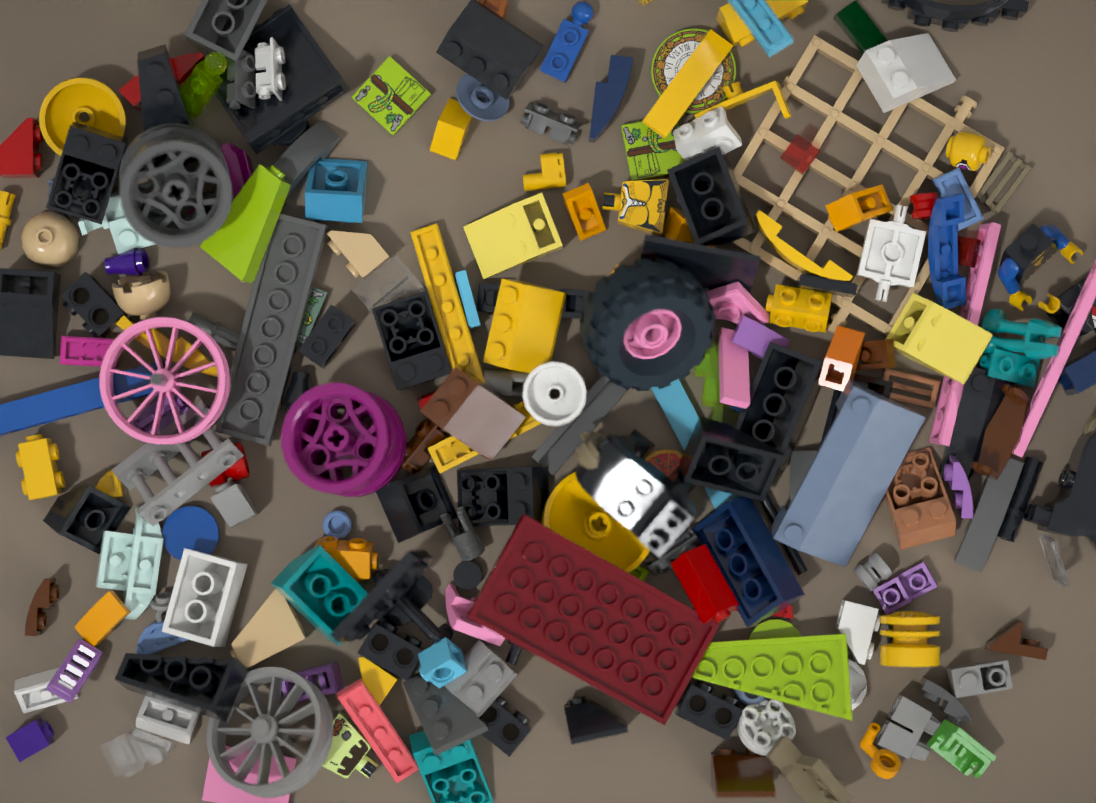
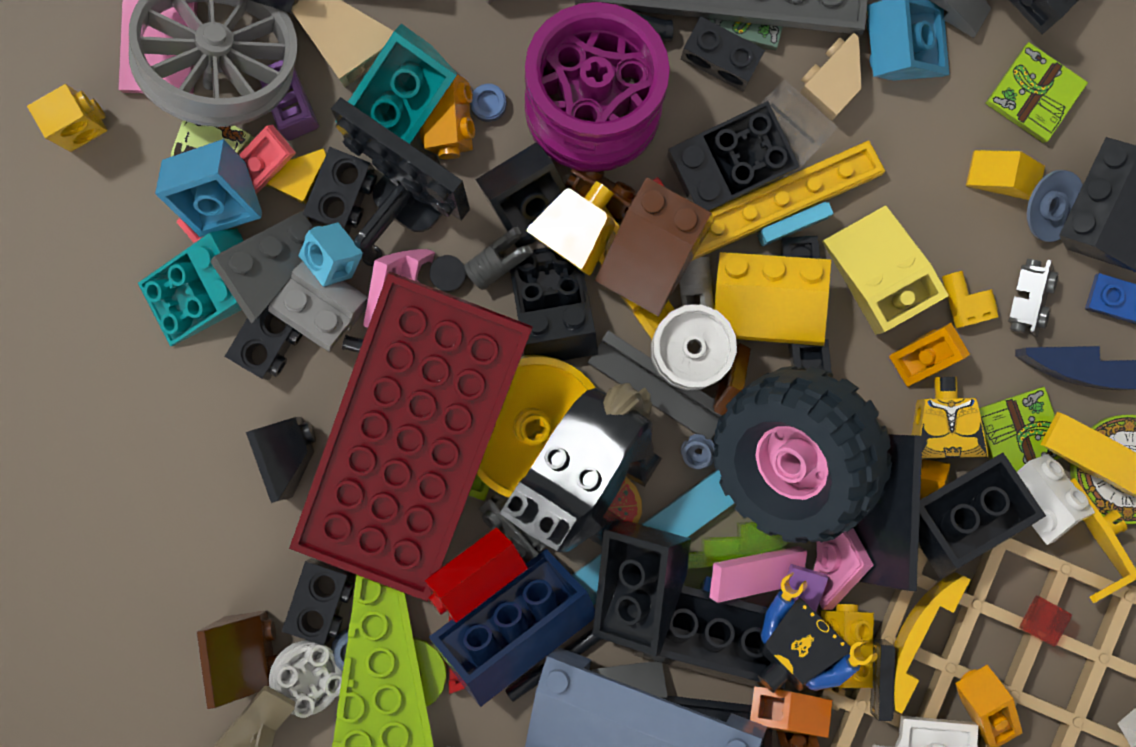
camera: 85 degrees right, 0 degrees up
(378, 749) = (209, 188): none -> dark azure slope
(448, 469) = (576, 226): none -> torso
(582, 366) = (733, 380): none -> reddish brown tile
(636, 406) = (696, 460): none -> sand blue plate
(791, 343) = (805, 646): none -> torso

